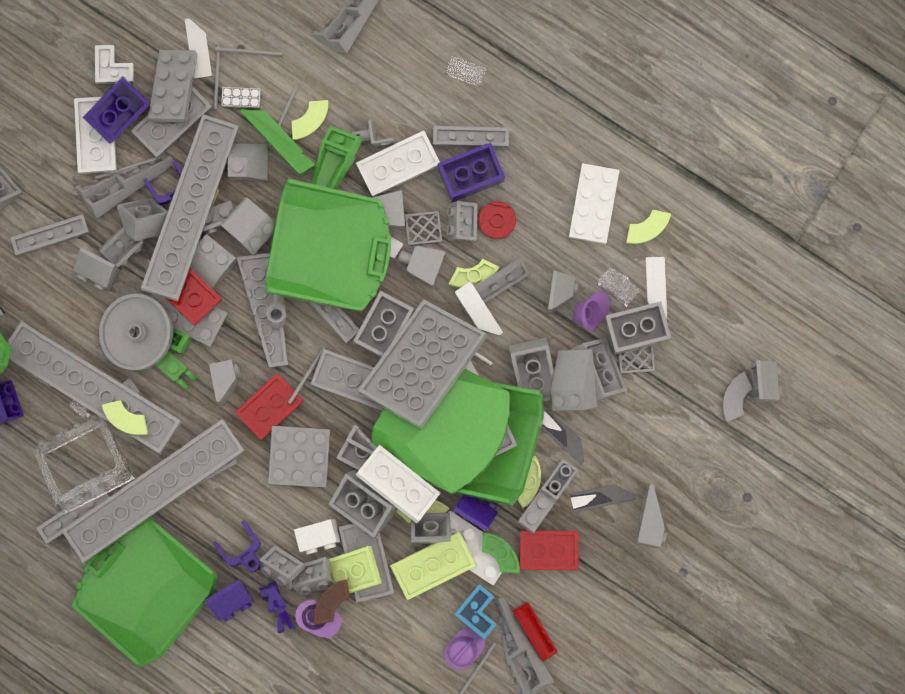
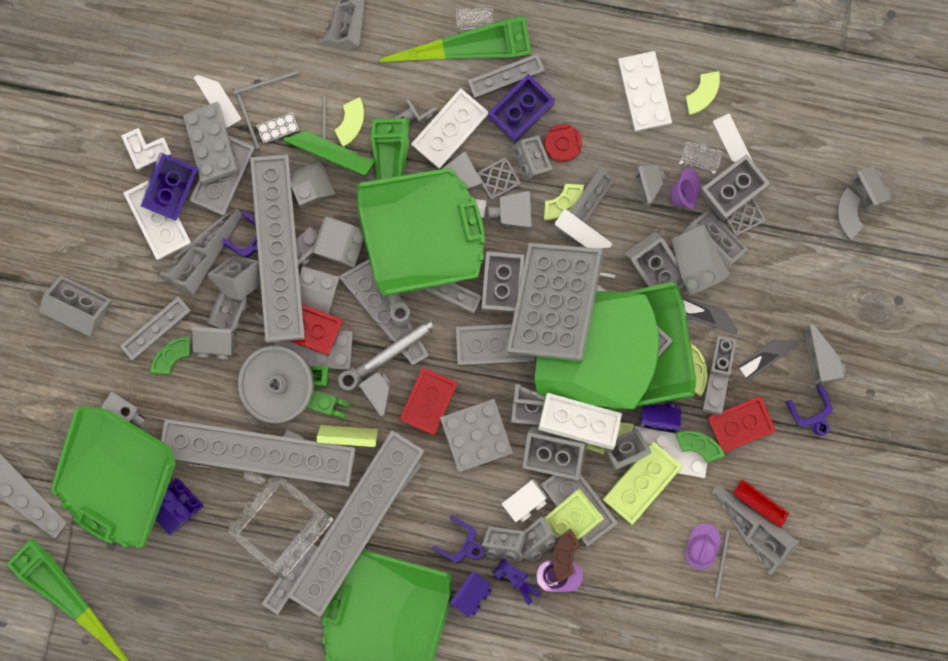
camera: 25 degrees left, 0 degrees up
(52, 265) = (170, 355): none -> bright green tile
(125, 420) = (303, 469): yellowish green tile -> none
(180, 407) = (347, 436): none -> yellowish green tile
(245, 348) = (384, 356): none -> flat silver piece
(306, 375) = (450, 357): light grey axle -> none
(472, 614) = (696, 508): dark azure brick -> none
(474, 98) = (495, 39): none -> bright green plate
(620, 576) = (816, 420): none -> dark purple piece

